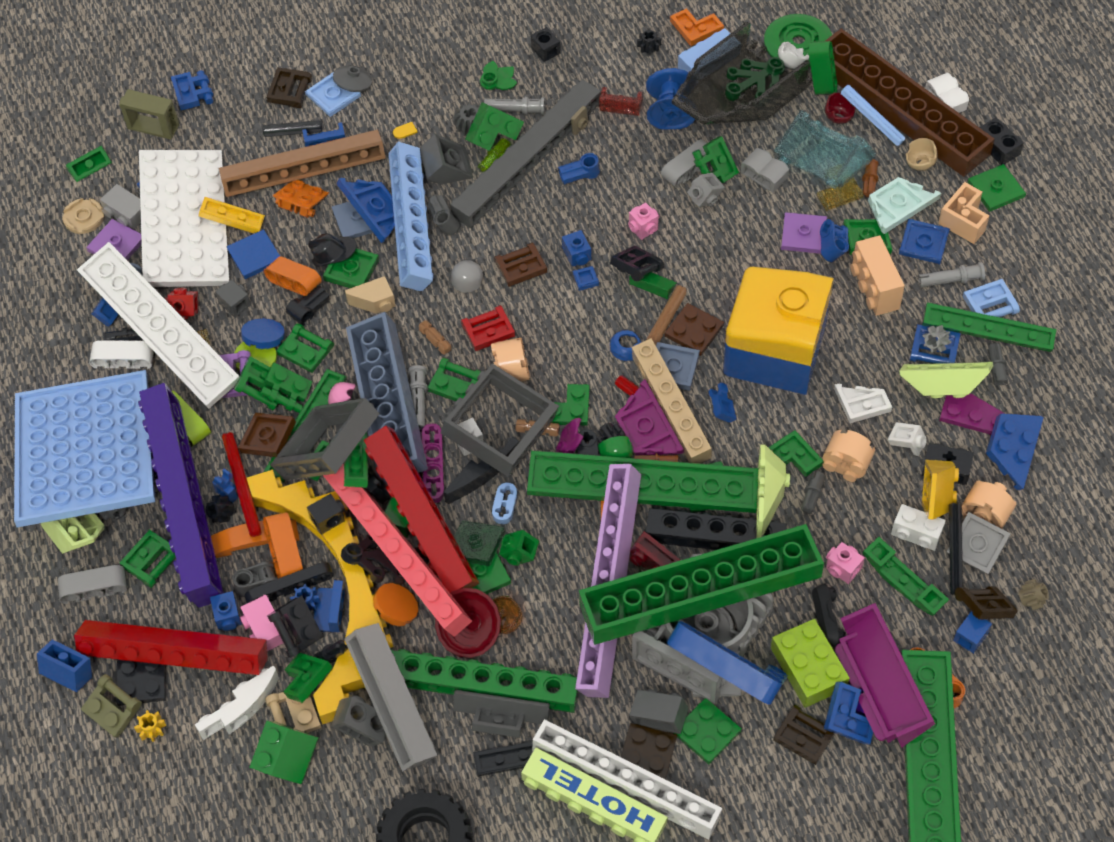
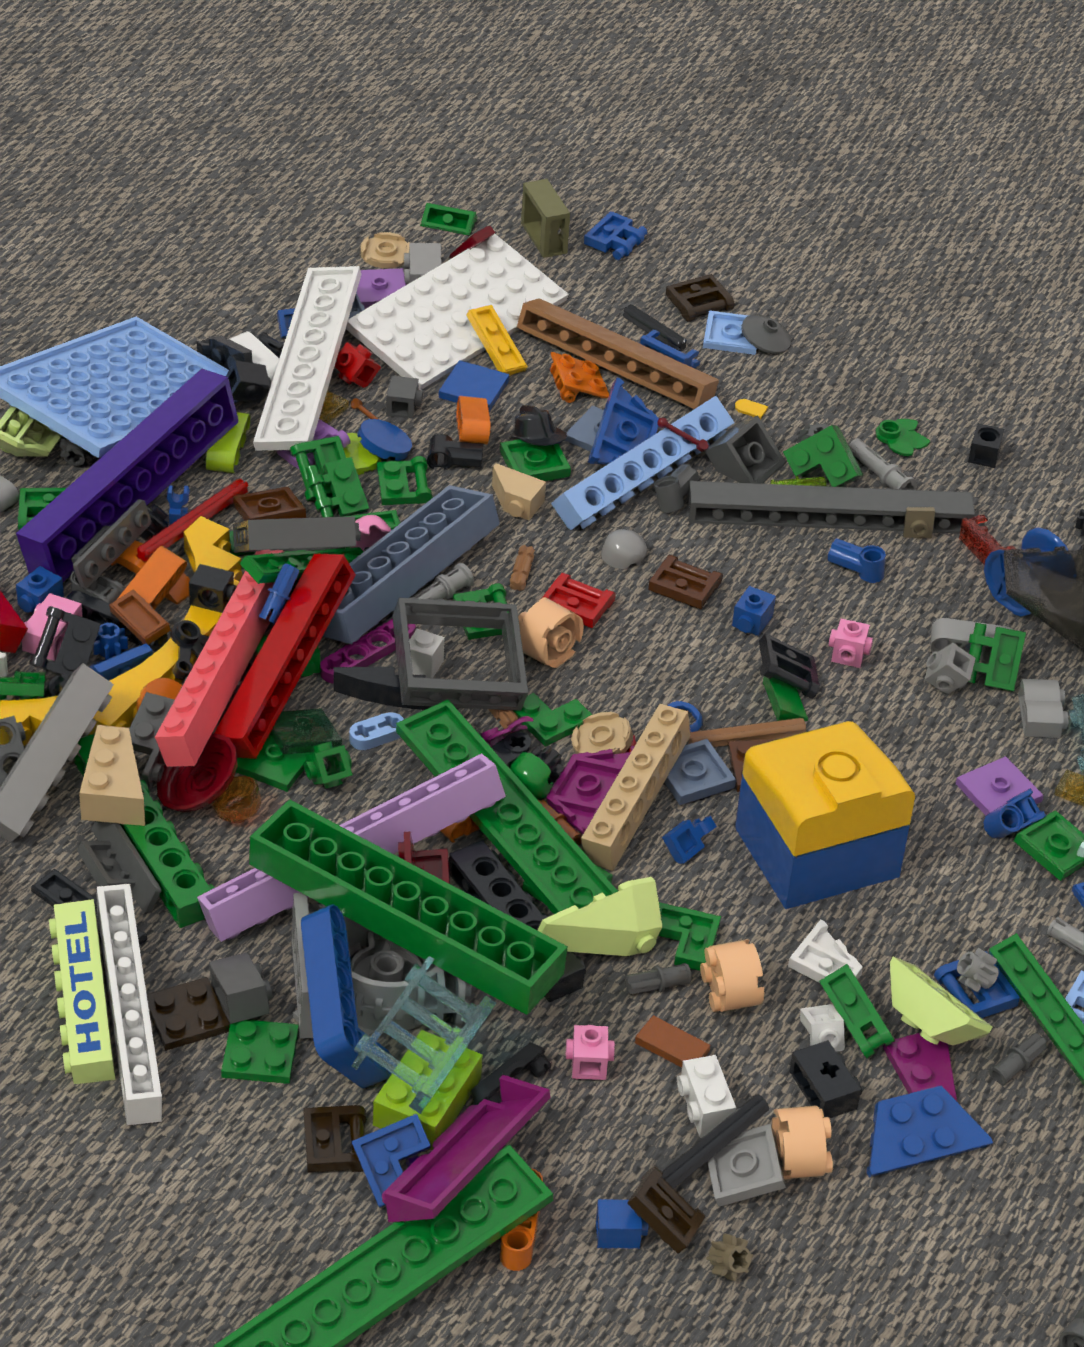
camera: 45 degrees right, 15 degrees down
(104, 366) = (224, 351): none -> black hinge
(134, 168) = (474, 240): none -> dark red tile
(148, 372) = (248, 381): none -> black brick
(211, 326) = (357, 404): none -> dark orange hinge
(228, 549) = (110, 544): none -> dark grey bracket
(310, 569) = (139, 617): none -> dark orange tile
(377, 481) = (279, 592): none -> blue axle
(414, 622) = (143, 732): none -> dark grey bracket
(424, 177) = (701, 445): none -> dark red hinge
(447, 673) = (111, 780): none -> tan wedge
(585, 278) = (728, 642): blue tile -> none
(610, 392) = (602, 732): none -> tan tile
(813, 629) = (455, 1038): none -> clear light blue fence
(862, 518) = (670, 1042): none -> dark orange tile
(877, 276) = (1004, 873): light nougat brick -> none
(903, 579) = (629, 1118): green slope -> none
(914, 413) = (856, 1009): none -> green plate
(938, 487) = (765, 1066): yellow slope -> none

